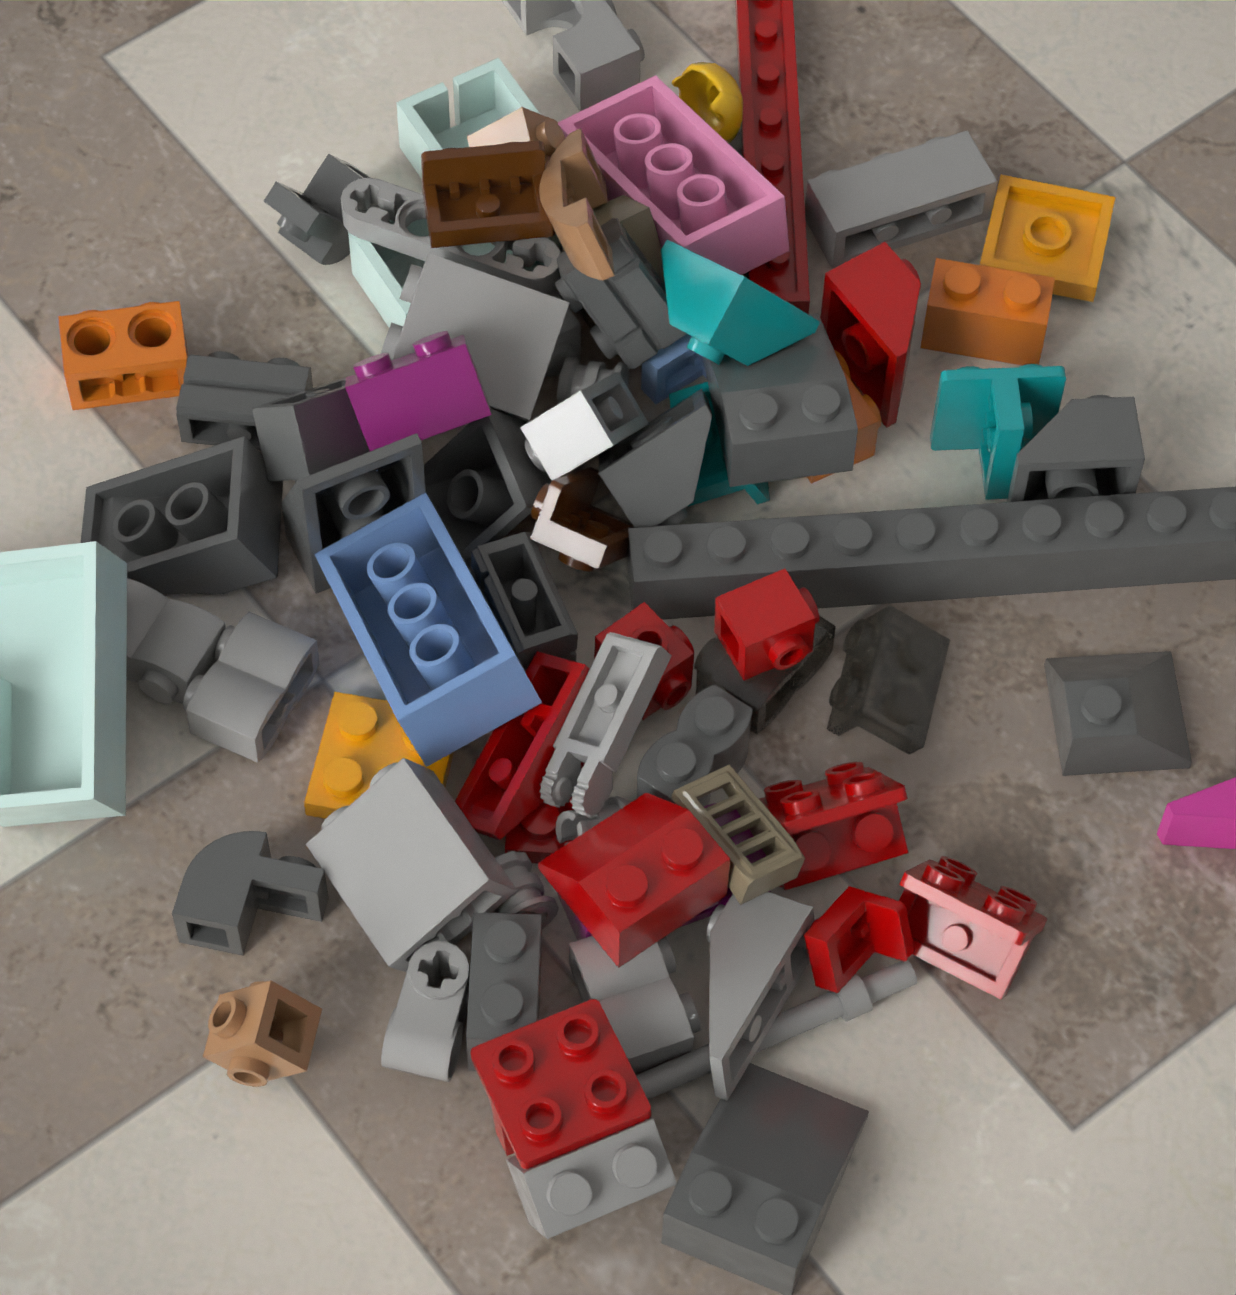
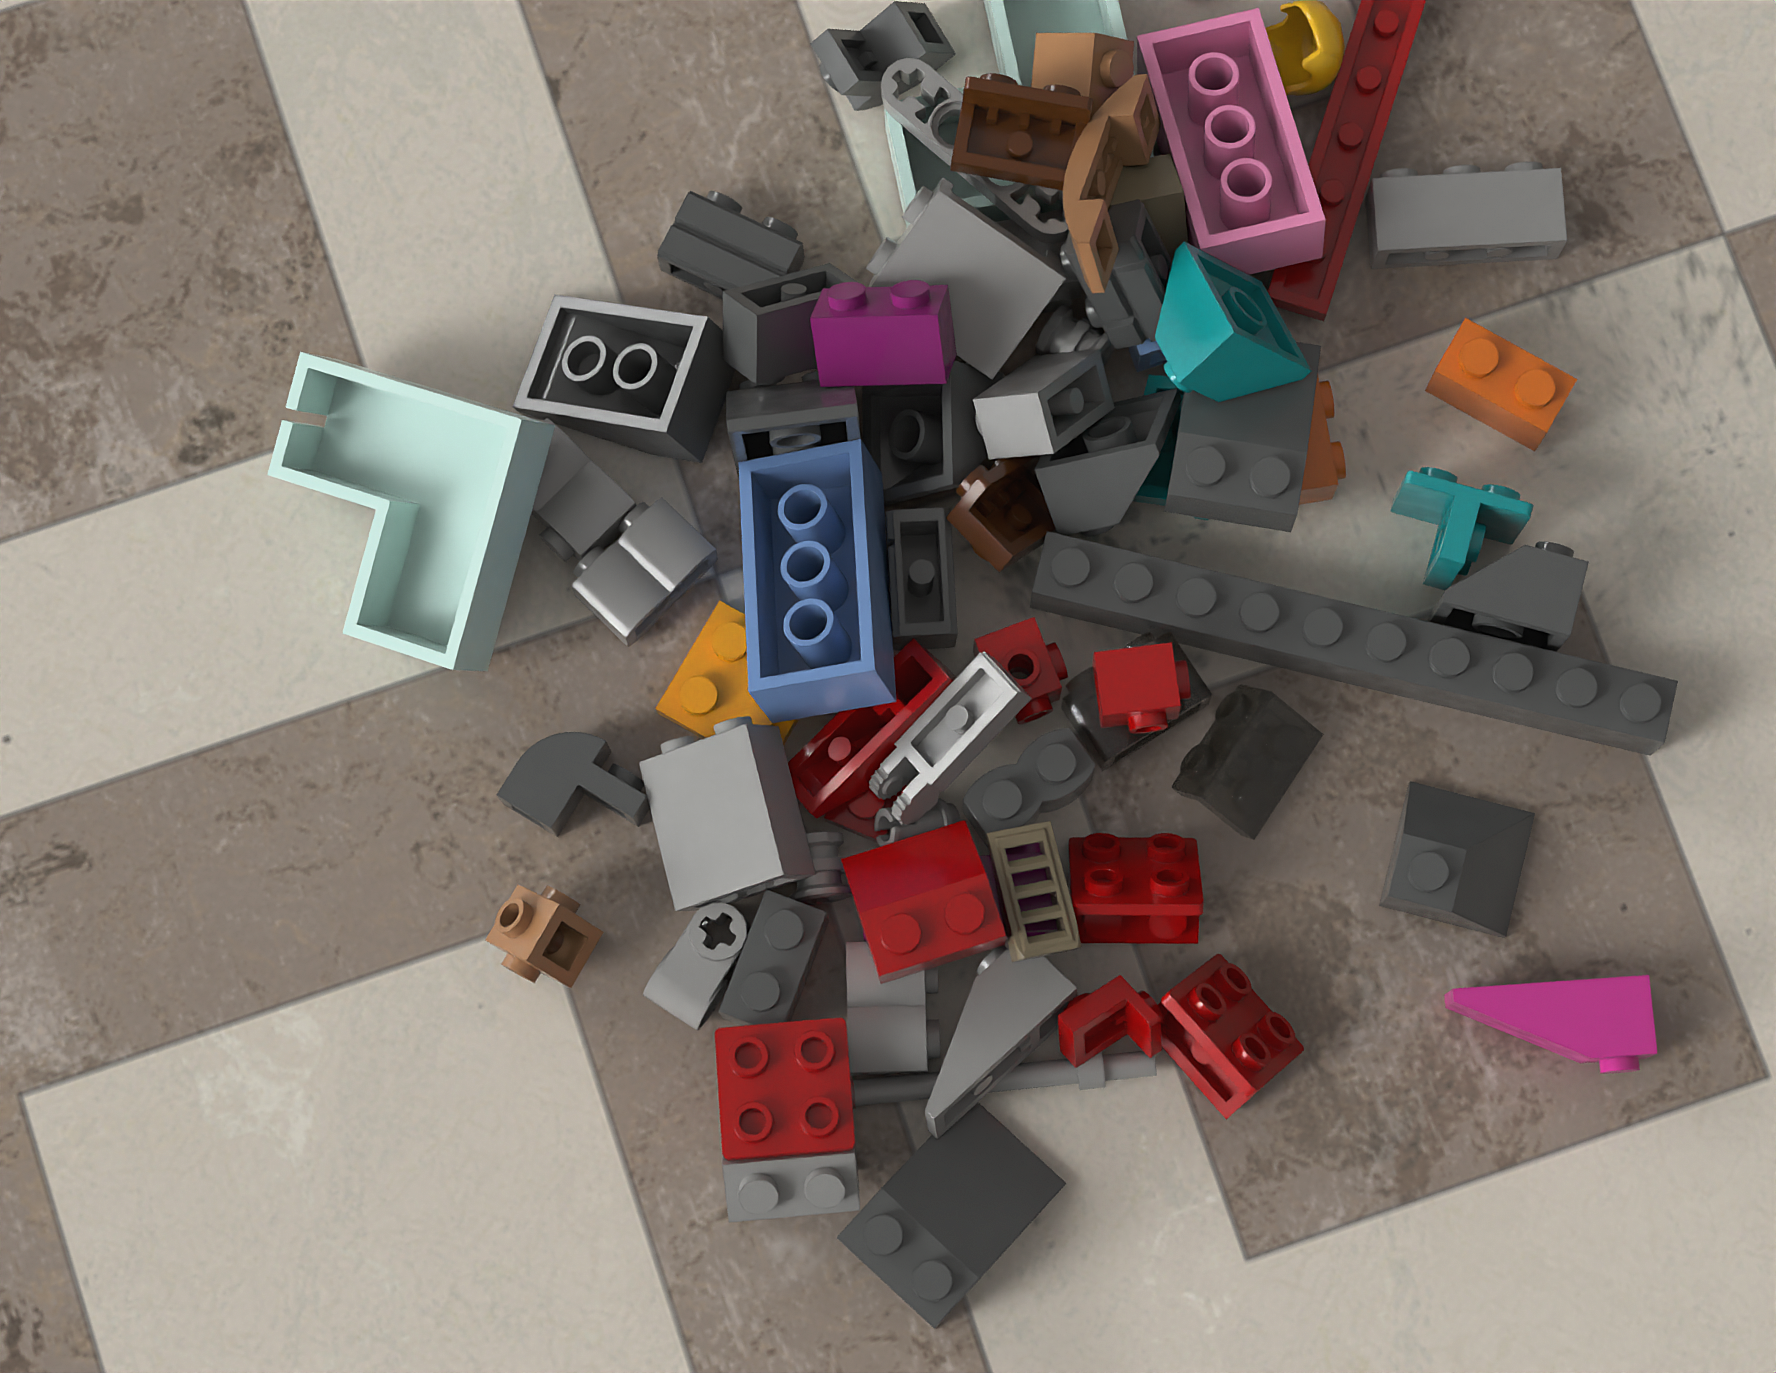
camera: 25 degrees right, 20 degrees up
(115, 358) = (627, 177): orange brick -> none
(871, 322) = (1373, 372): red slope -> none
(1049, 234) = (1599, 309): light orange plate -> none

